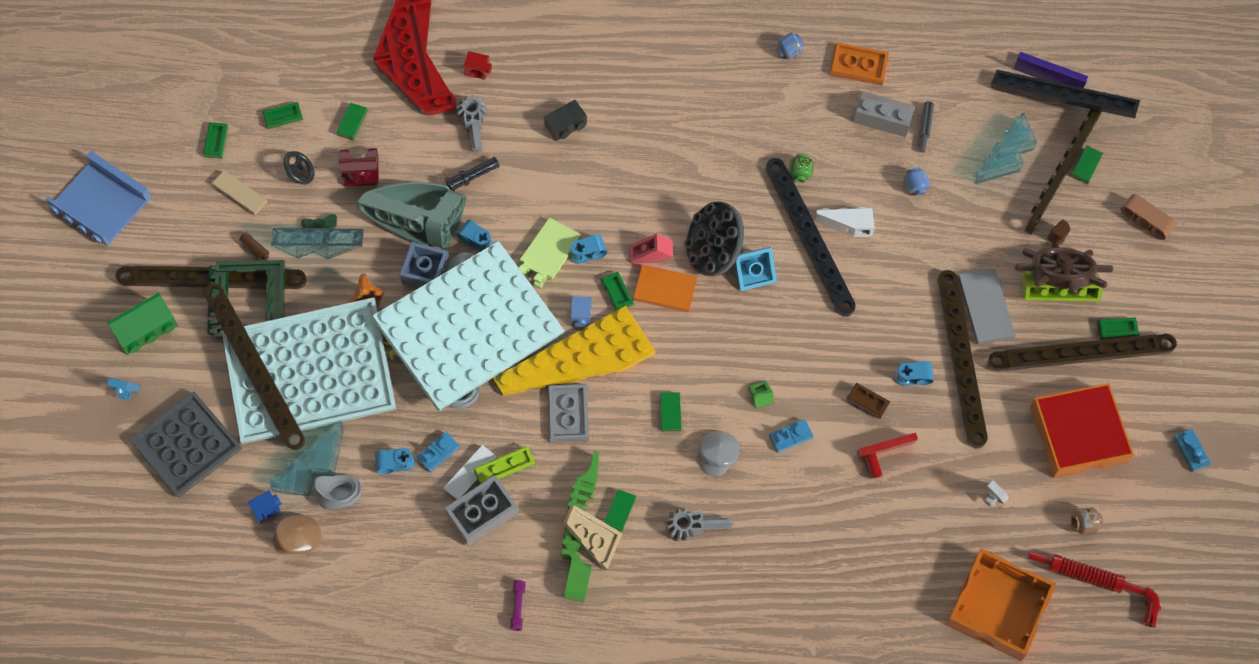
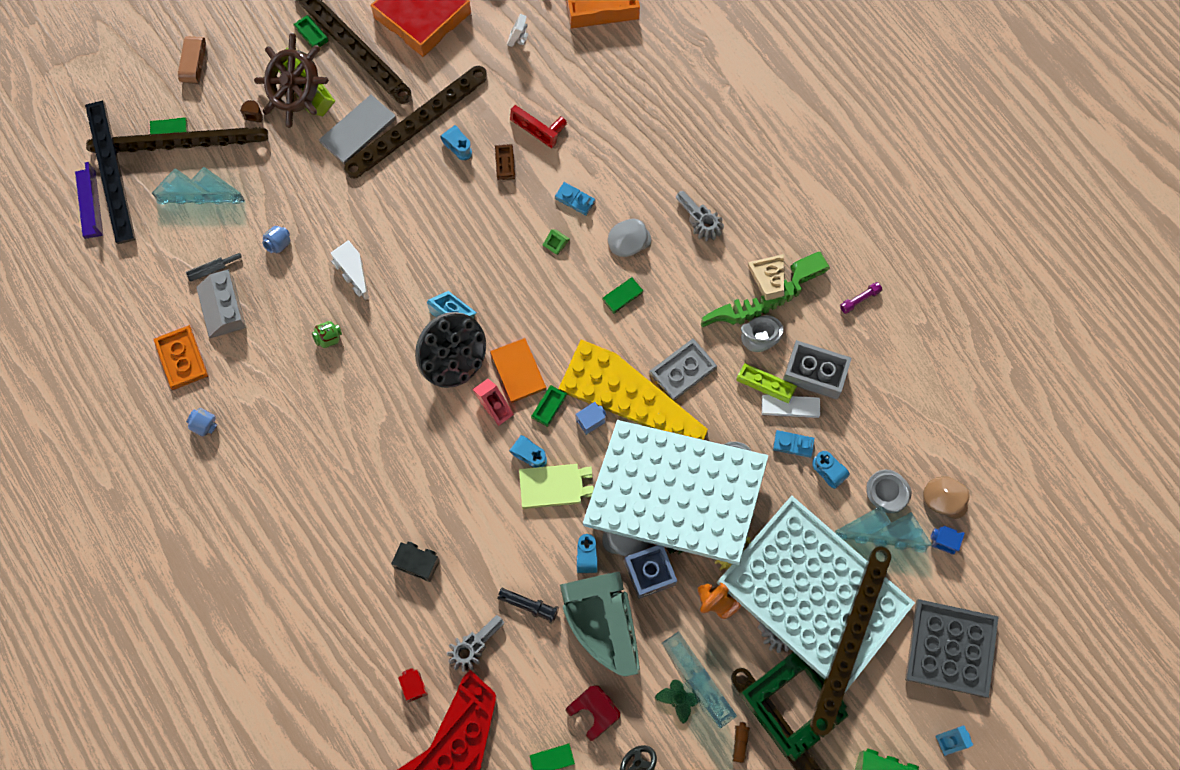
camera: 125 degrees left, 5 degrees up
(549, 493) = (761, 333): none -> light grey piece
(620, 510) = (731, 277): green tile -> none
(810, 237) = (385, 293): black plate -> none

